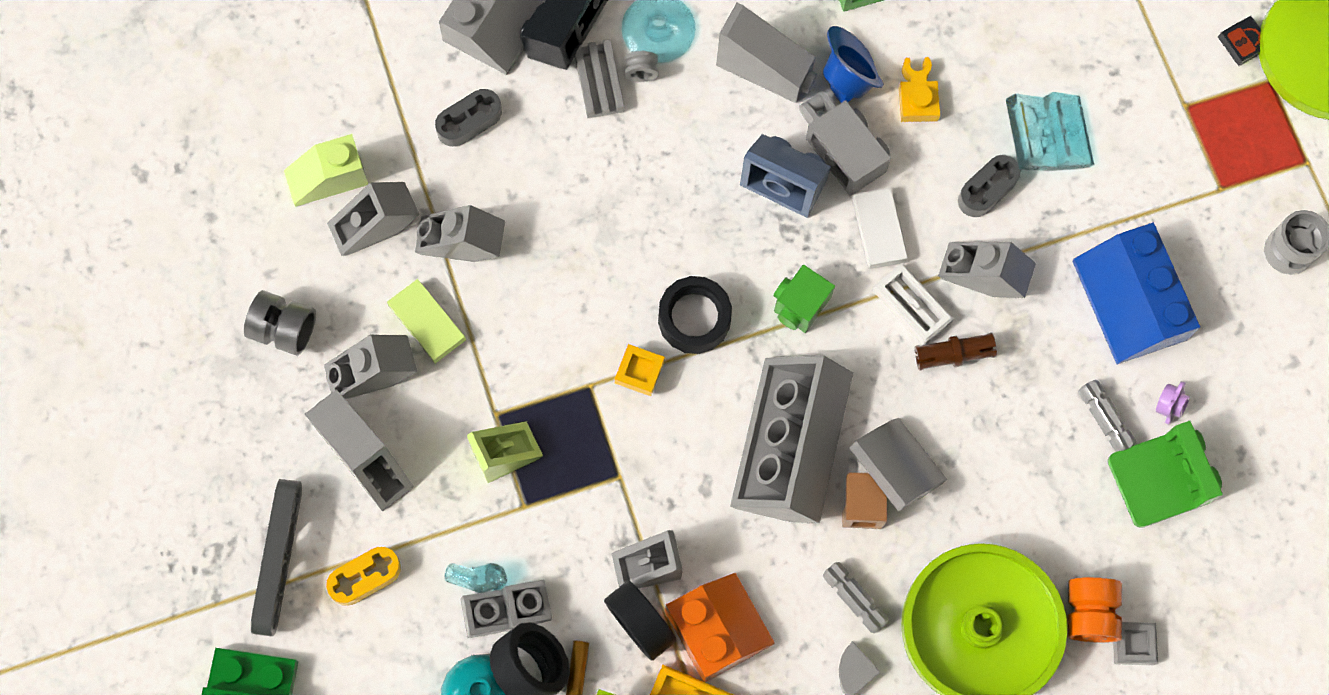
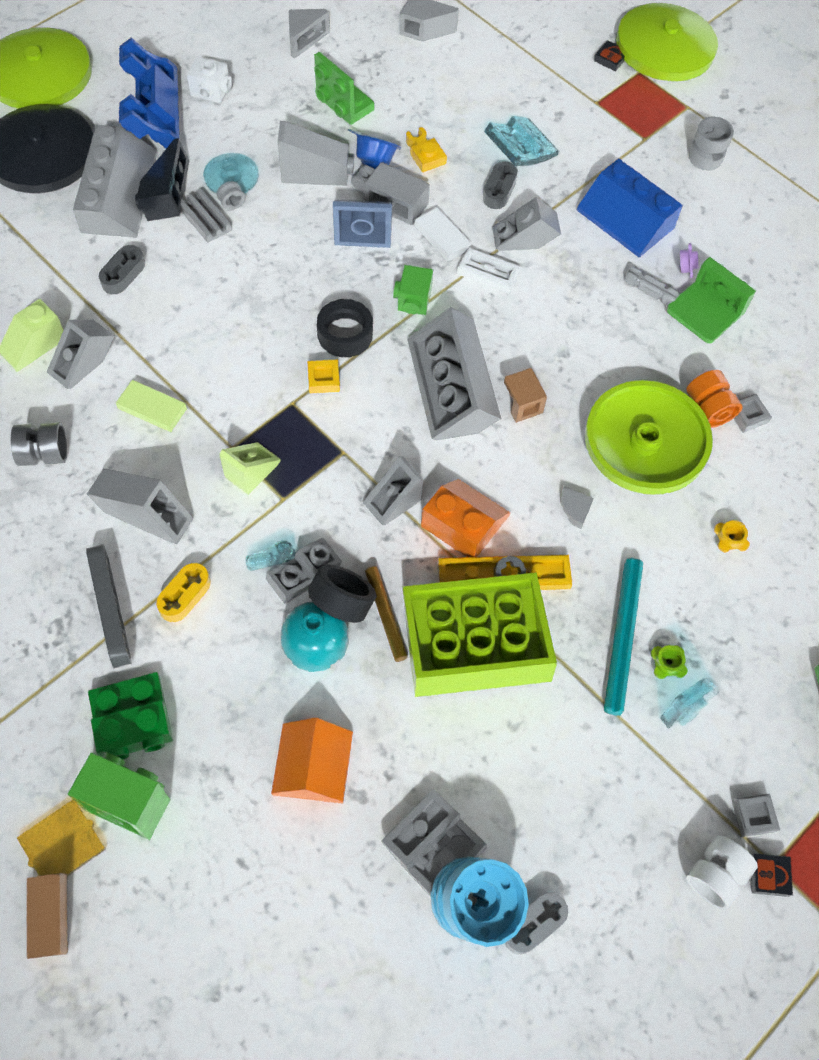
camera: 25 degrees left, 10 degrees down
(371, 365) = (123, 444): light grey slope -> none
(460, 234) = (151, 338): light grey slope -> none
(640, 620) = (408, 529): black tyre -> none
(855, 597) = (550, 459): light grey axle -> none
(898, 463) = (533, 361): light grey slope -> none
(955, 351) = (533, 284): reddish brown pin -> none

